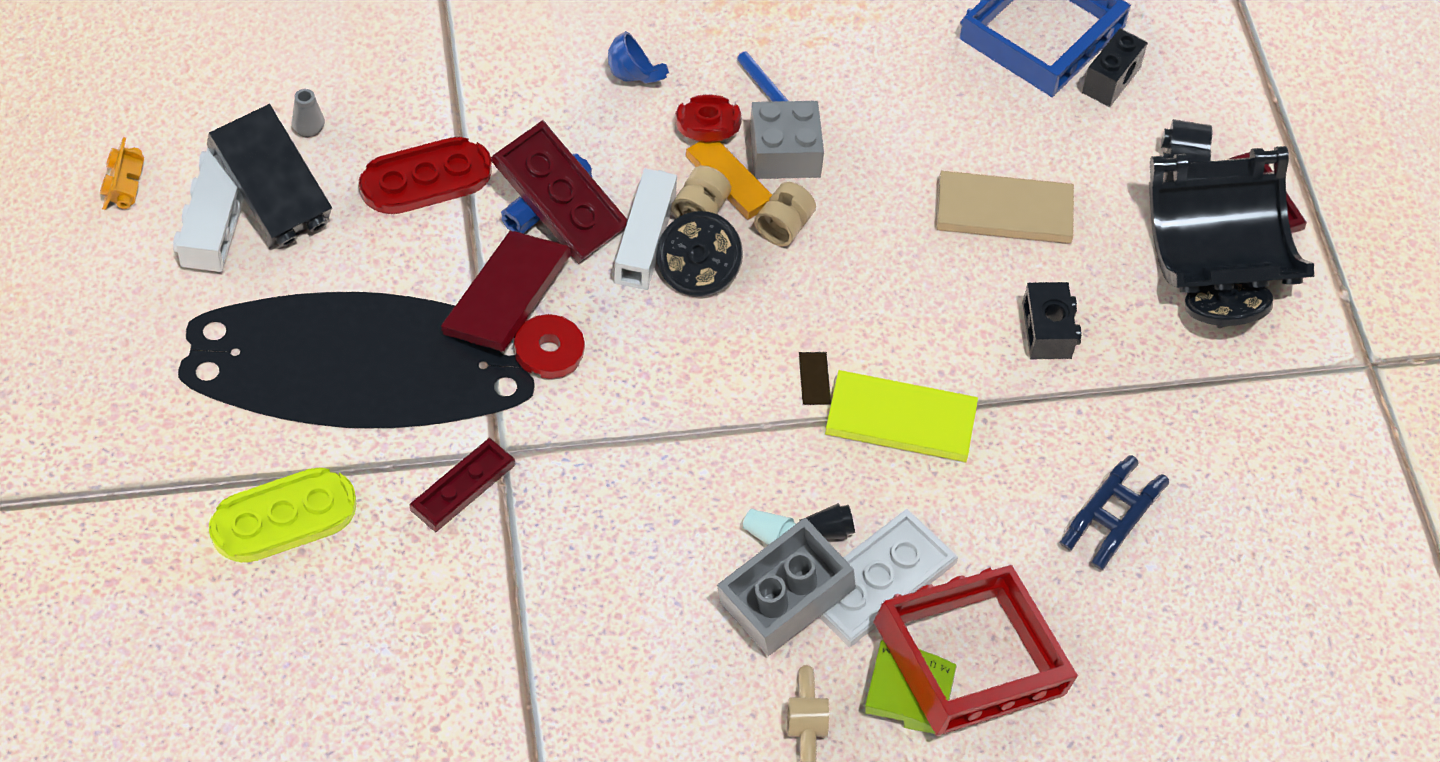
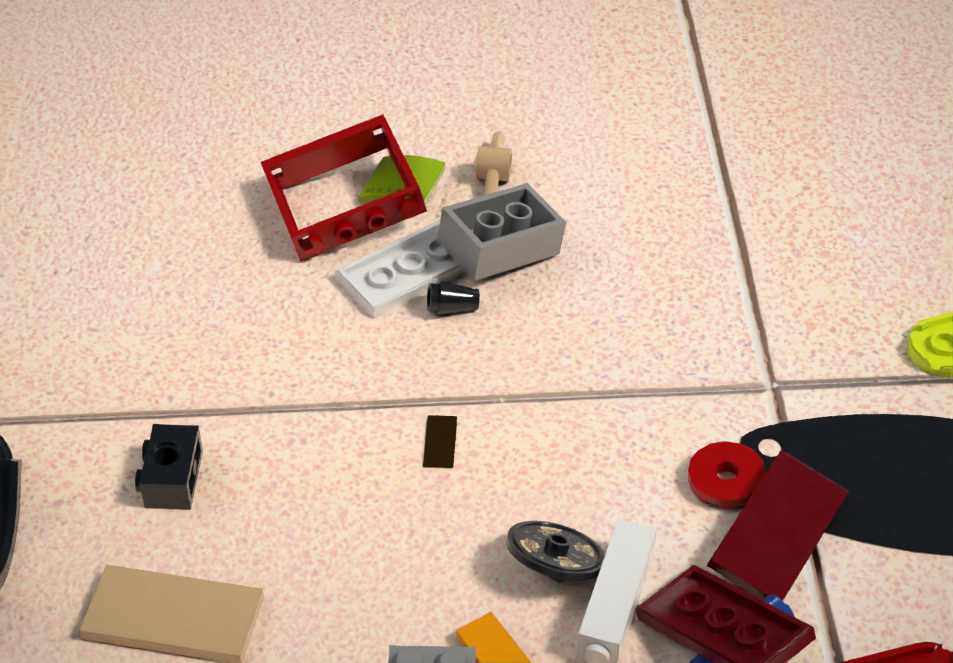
camera: 170 degrees left, 10 degrees down
(462, 484) = (804, 355): dark red tile -> none
(703, 191) = (548, 620): tan wheel -> none
(766, 525) = (505, 295): light aqua cone -> none
(785, 214) = (447, 596): tan wheel -> none
(902, 416) = (357, 394): neon yellow tile -> none
(1119, 528) = (167, 312): dark blue piece -> none

